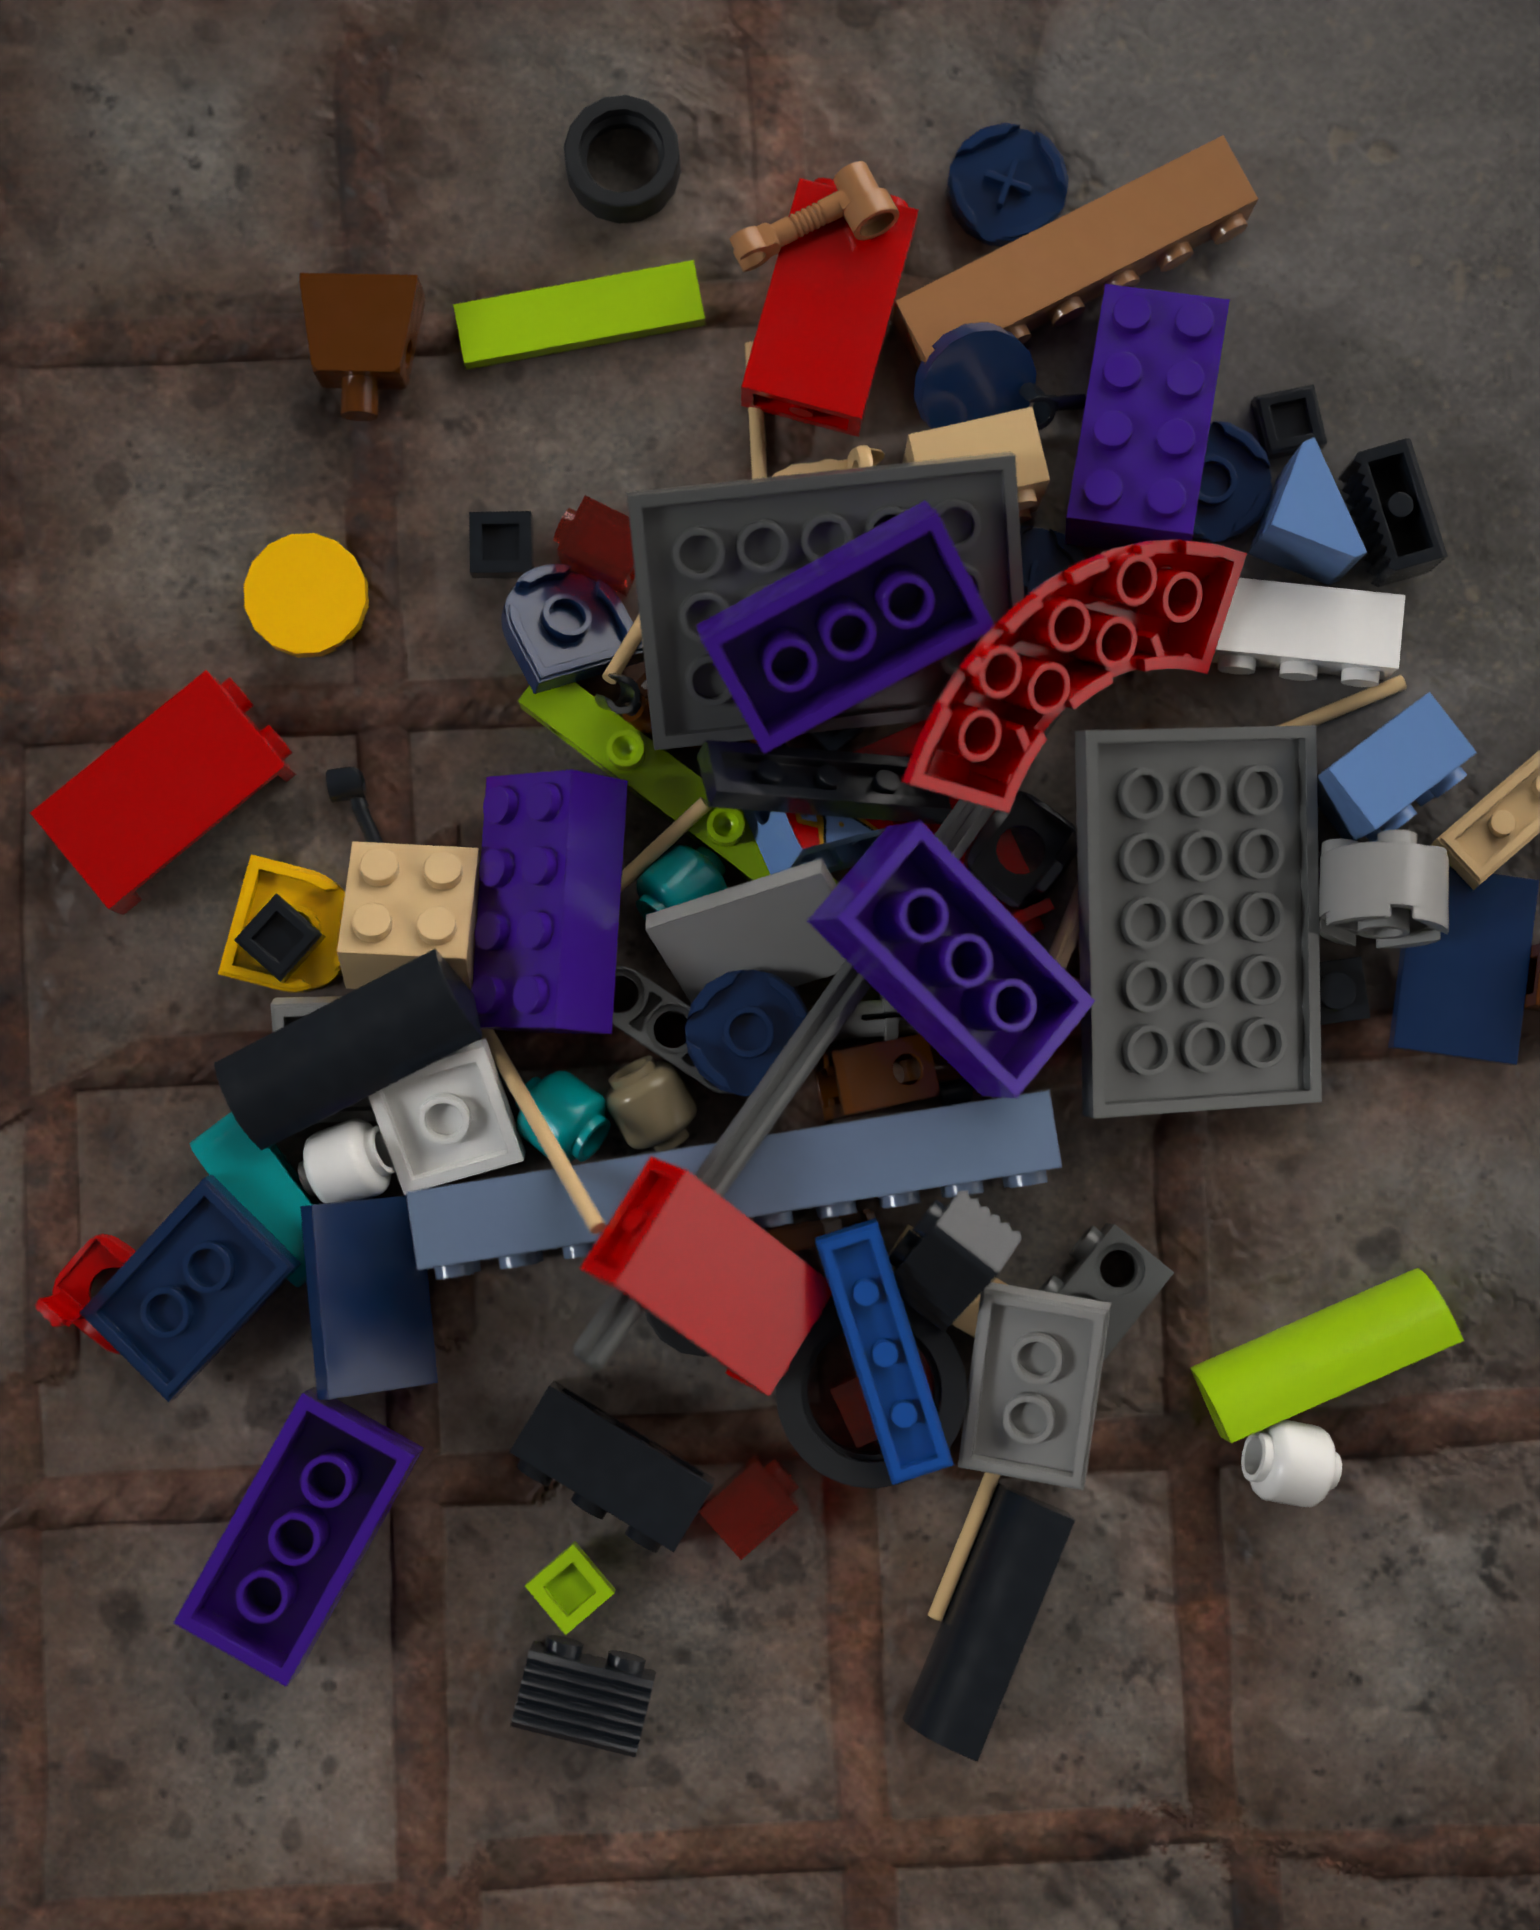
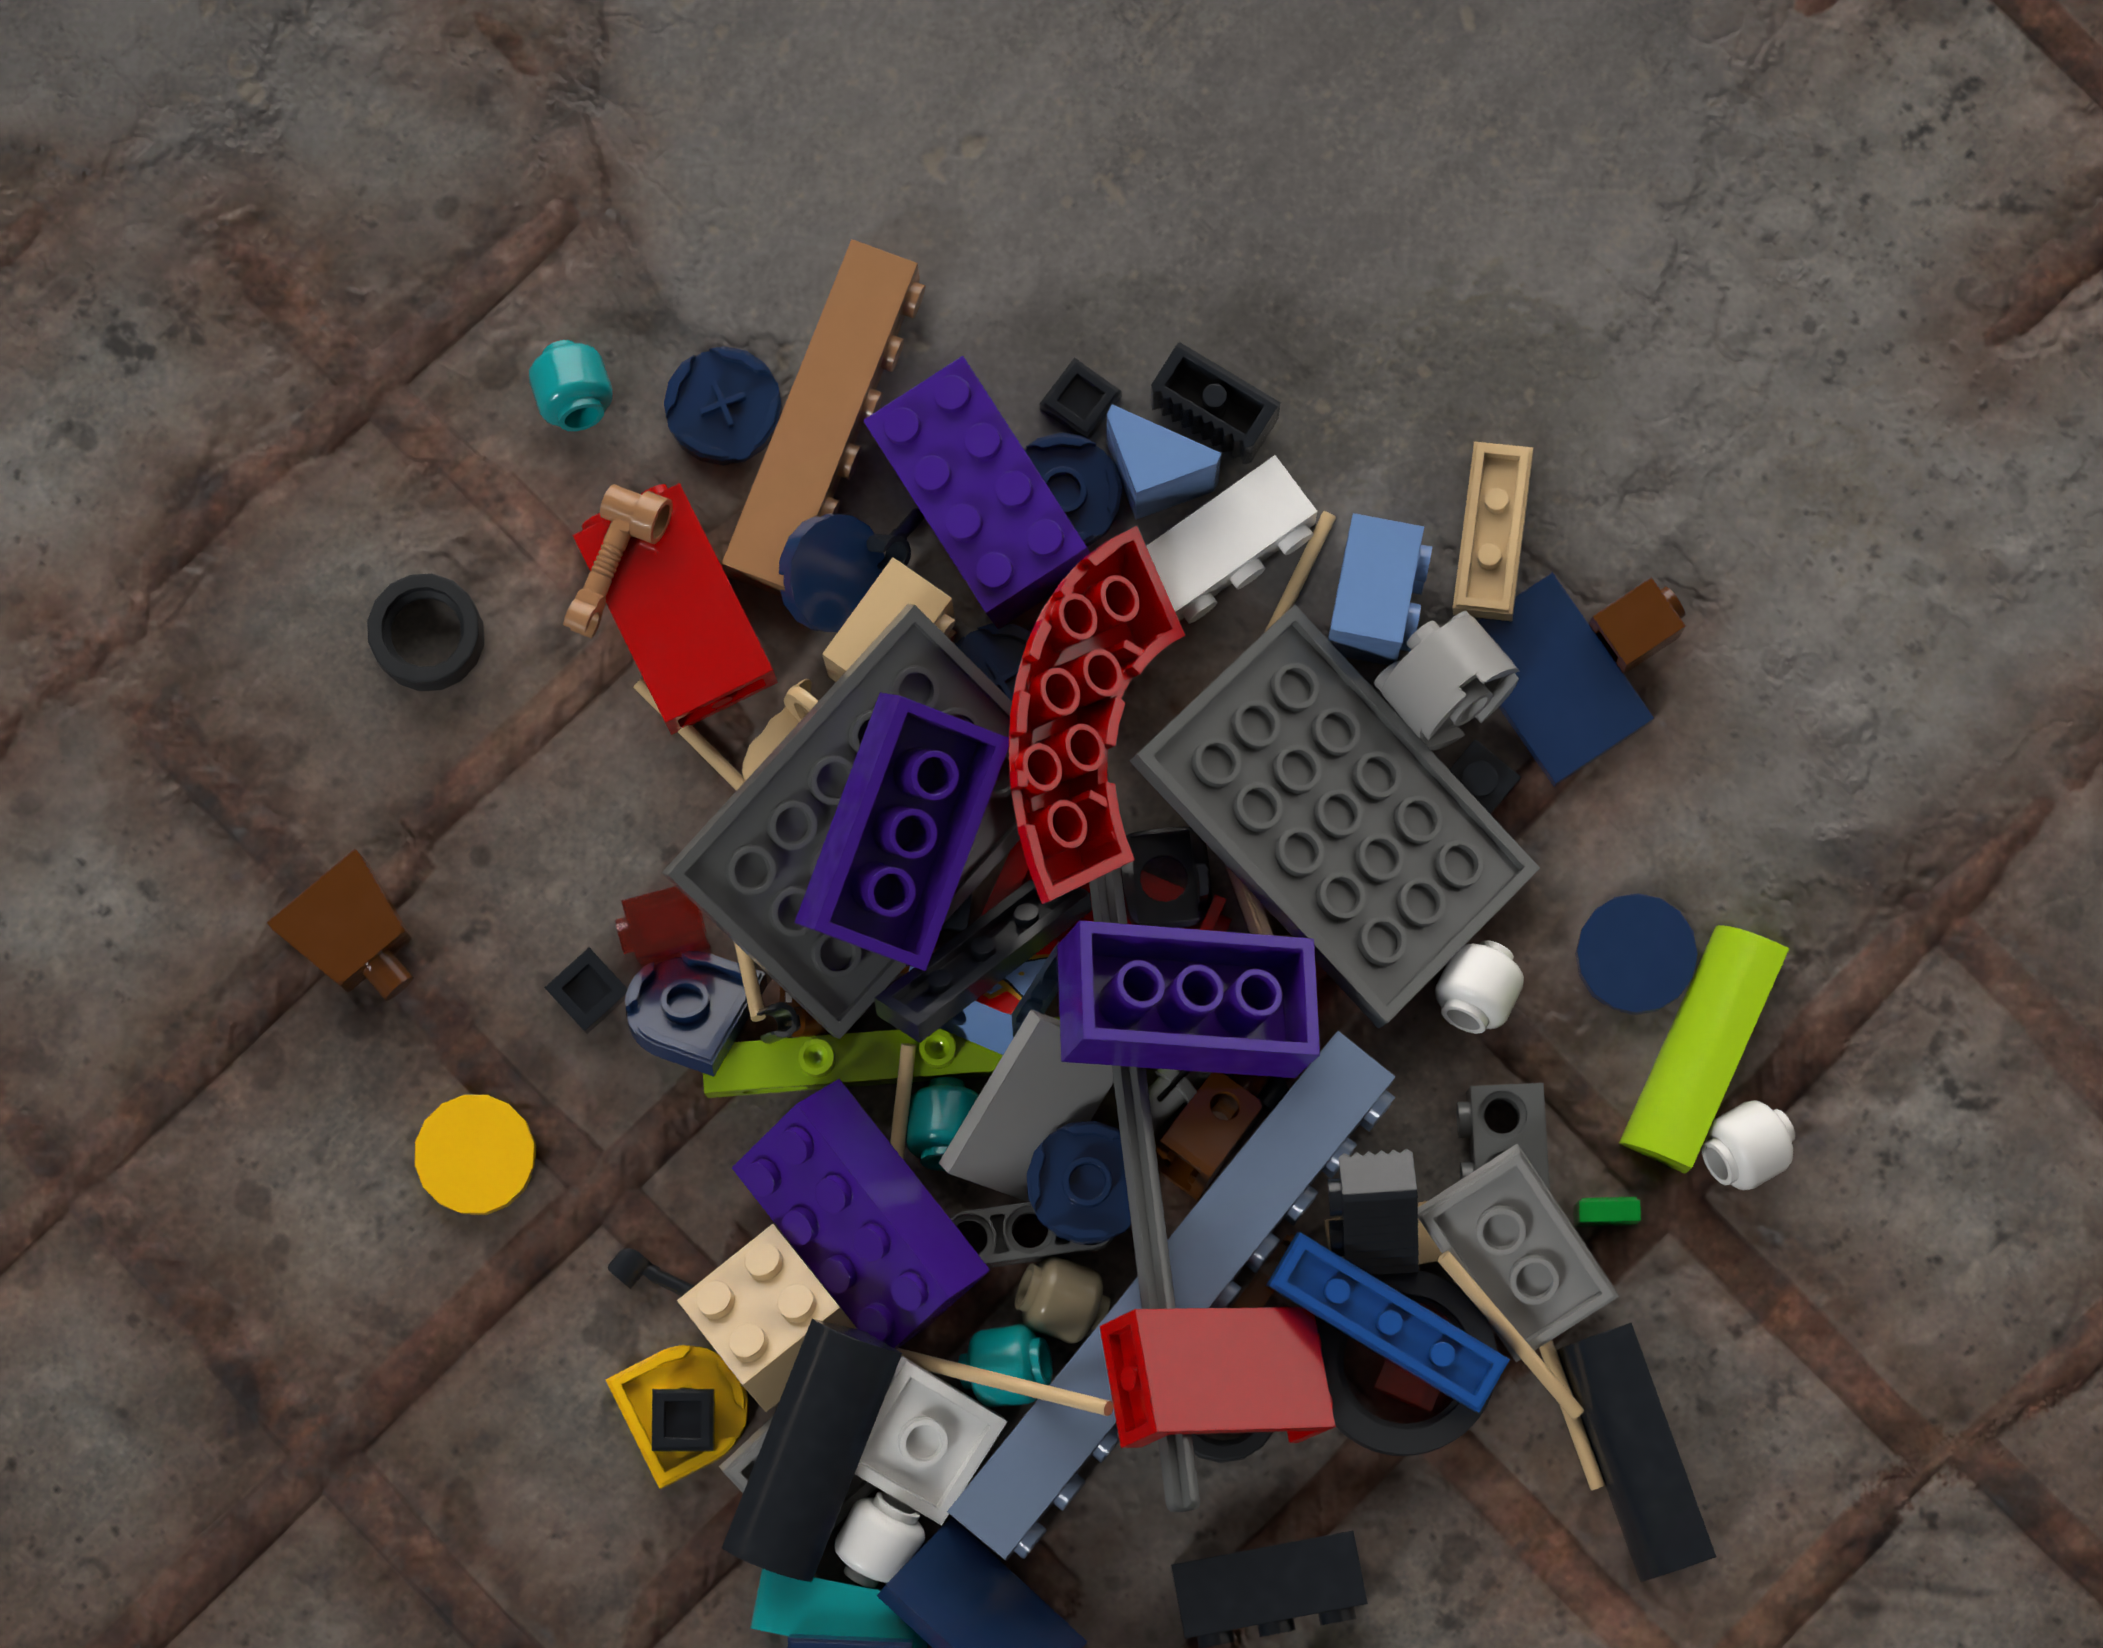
camera: 35 degrees left, 5 degrees down
(162, 788) = (500, 1387): red panel -> none
(579, 314) = (493, 772): lime tile -> none
(751, 1504) = (1393, 1522): clear red brick -> none
(903, 64) = (570, 385): none -> teal head
(972, 1443) = (1510, 1334): none -> tan axle
(1133, 1414) = (1607, 1211): none -> green tile
(1191, 1152) = (1479, 987): none -> white head
(1336, 1234) = (1636, 954): none -> dark blue tile

